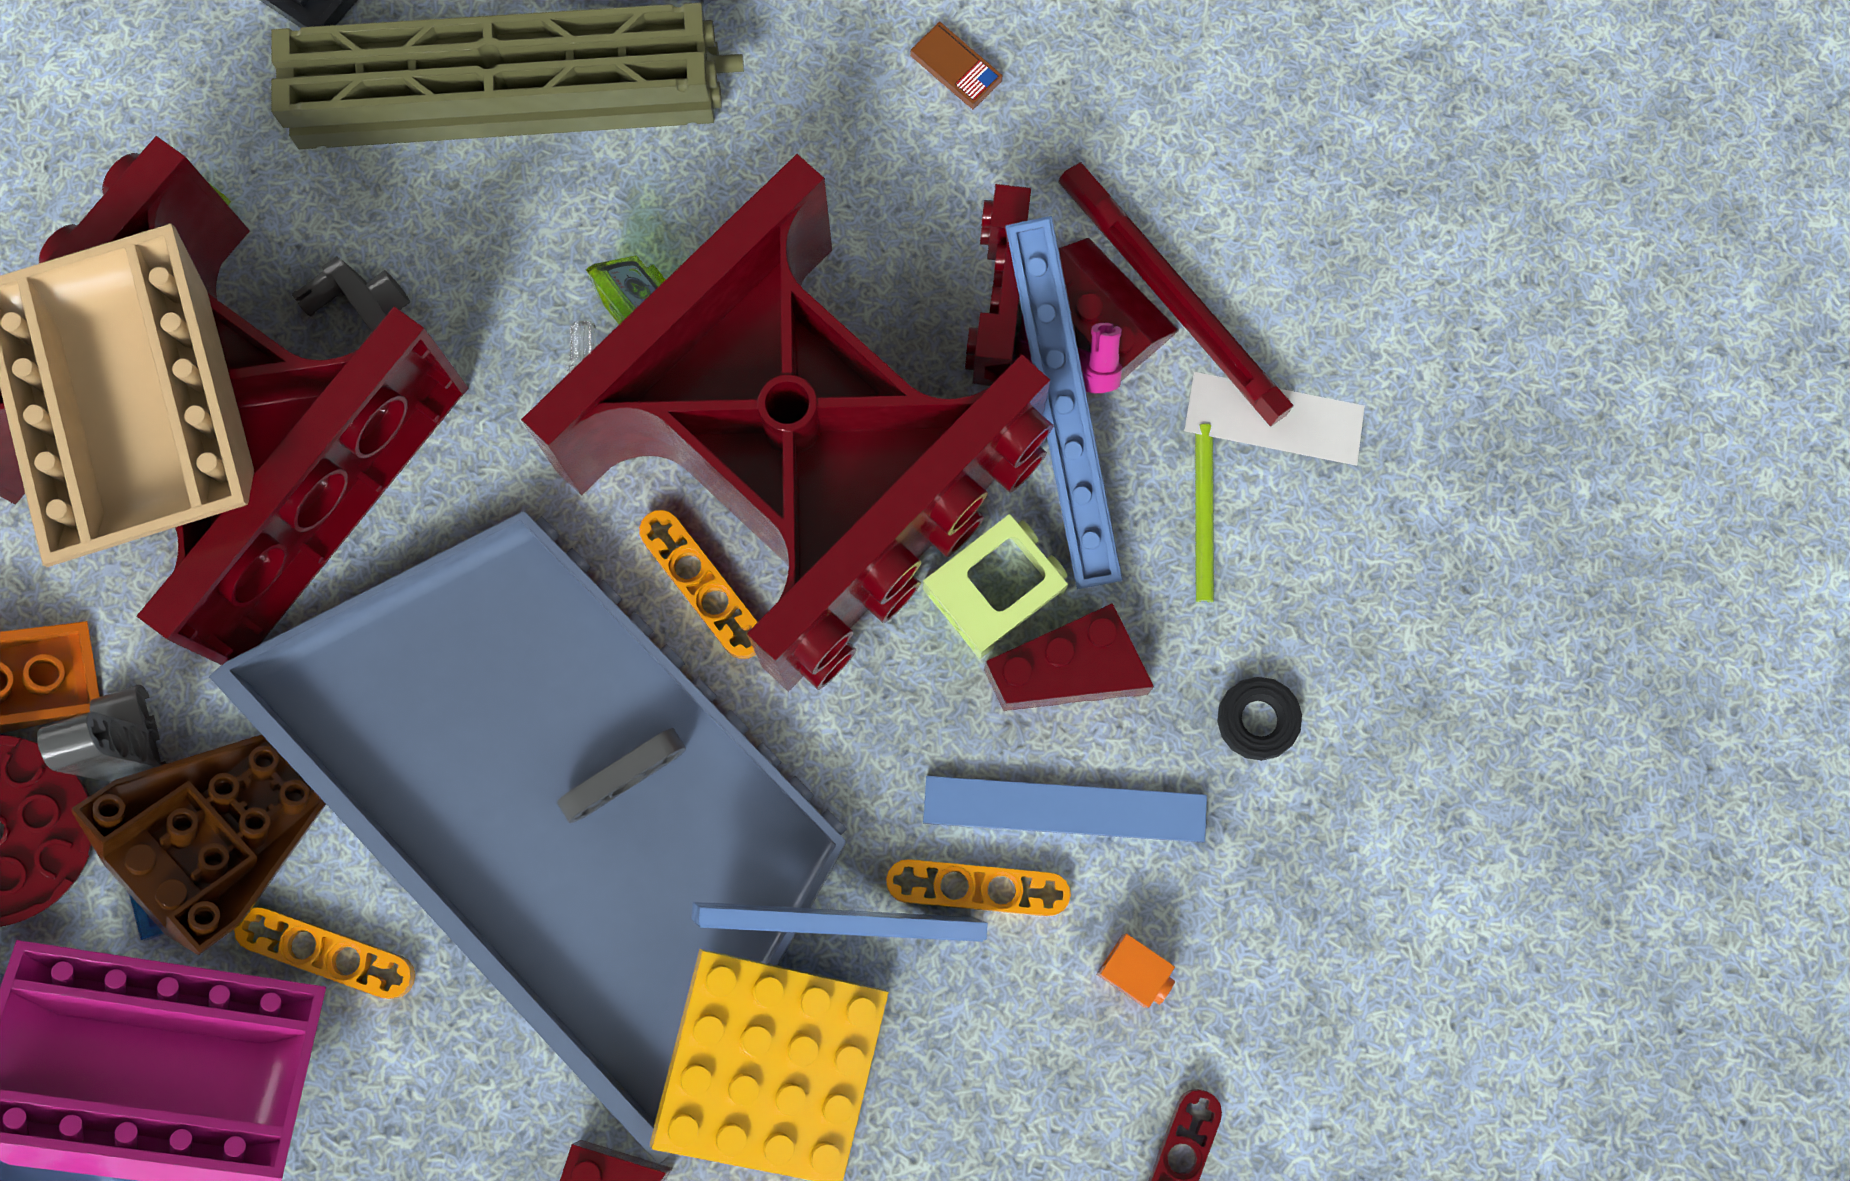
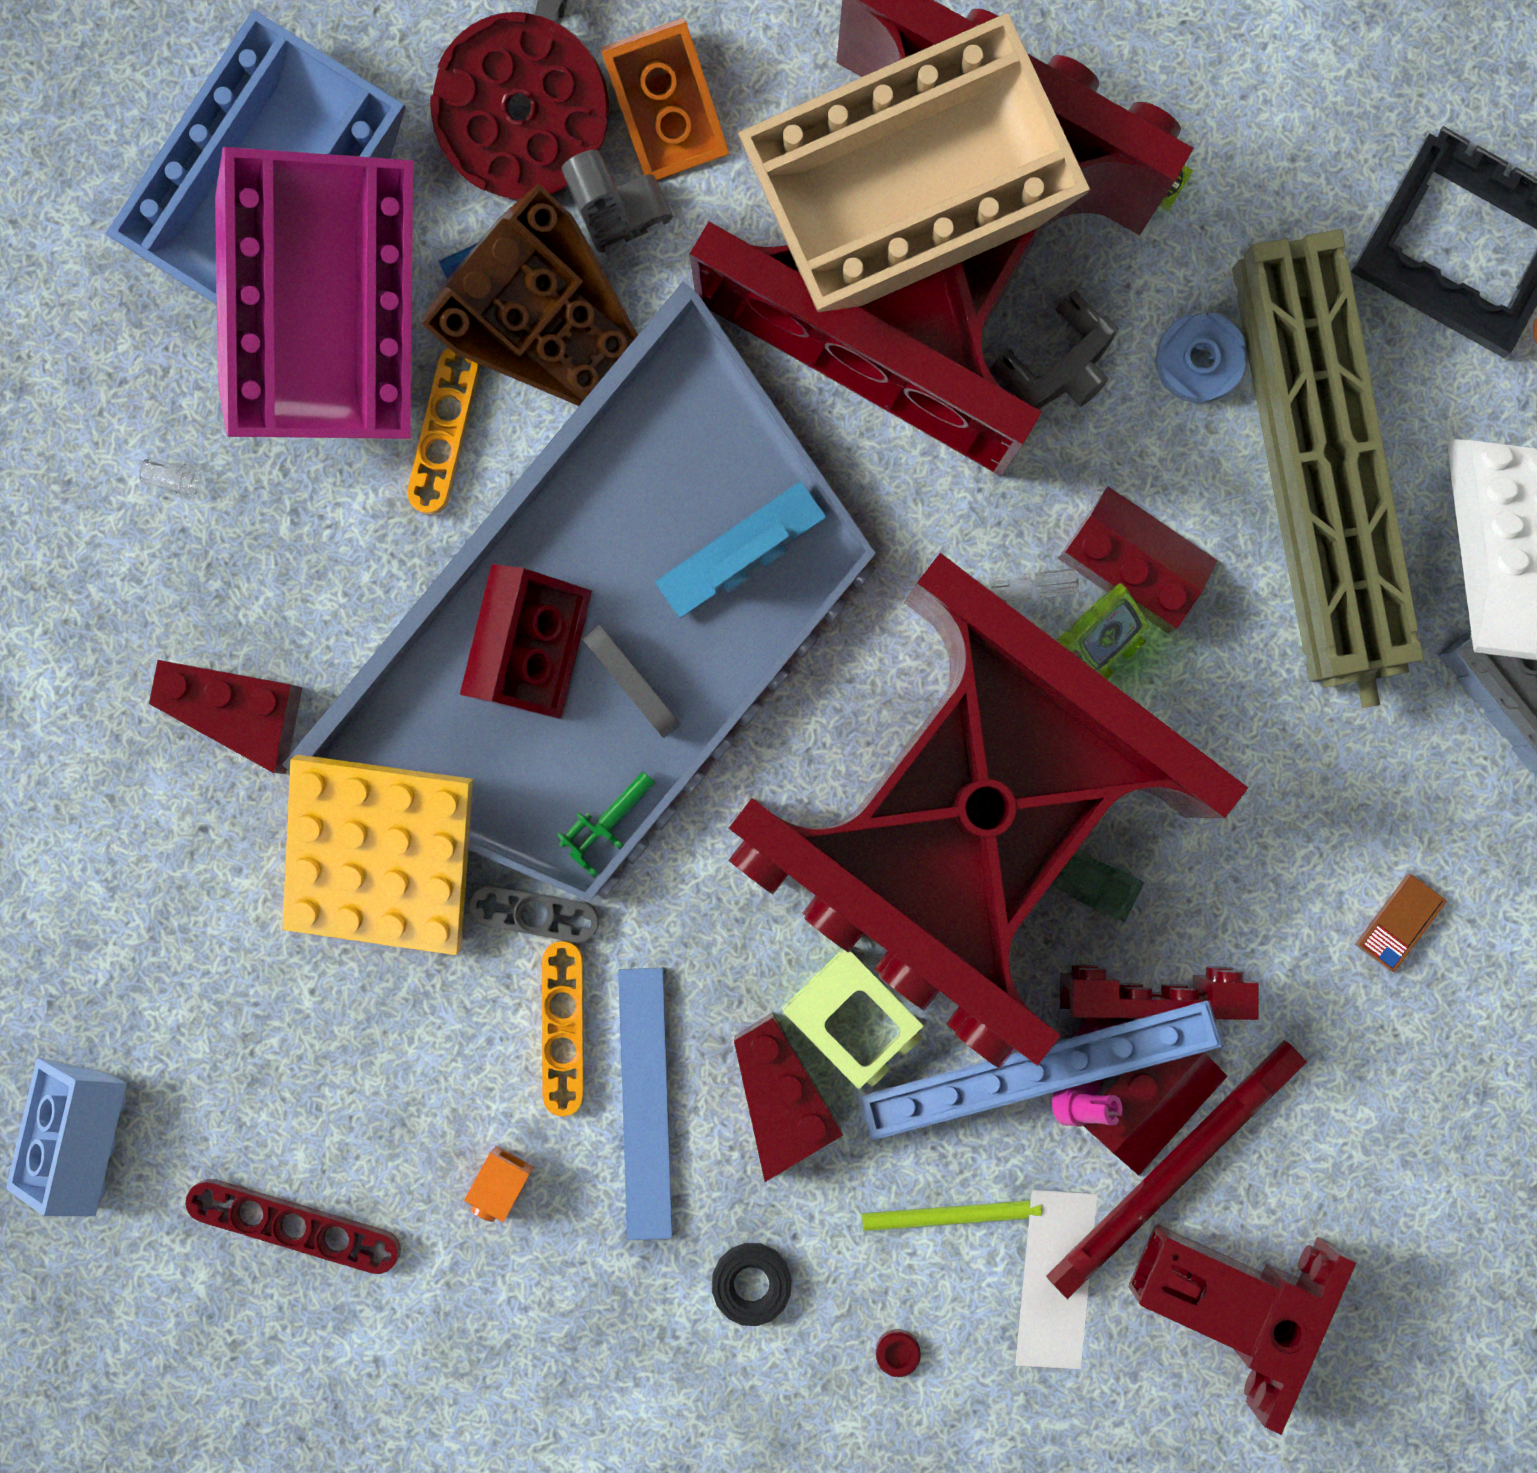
camera: 85 degrees right, 10 degrees up
(384, 208) = (1200, 332): none -> medium blue plate
(501, 650) = (739, 550): none -> dark azure bracket
(552, 275) = (1144, 555): none -> dark red slope
(562, 883) = (526, 641): none -> dark red slope
(699, 586) = (829, 734): light orange beam -> none
(765, 817) = (607, 821): none -> green piece
(838, 922) = (511, 904): medium blue tile -> none
(875, 875) = (503, 896): none -> dark grey beam
(891, 318) = (1111, 887): none -> clear green brick
(1319, 224) = (1264, 1316): none -> dark red brick
(1338, 579) = (898, 1353): none -> dark red tile

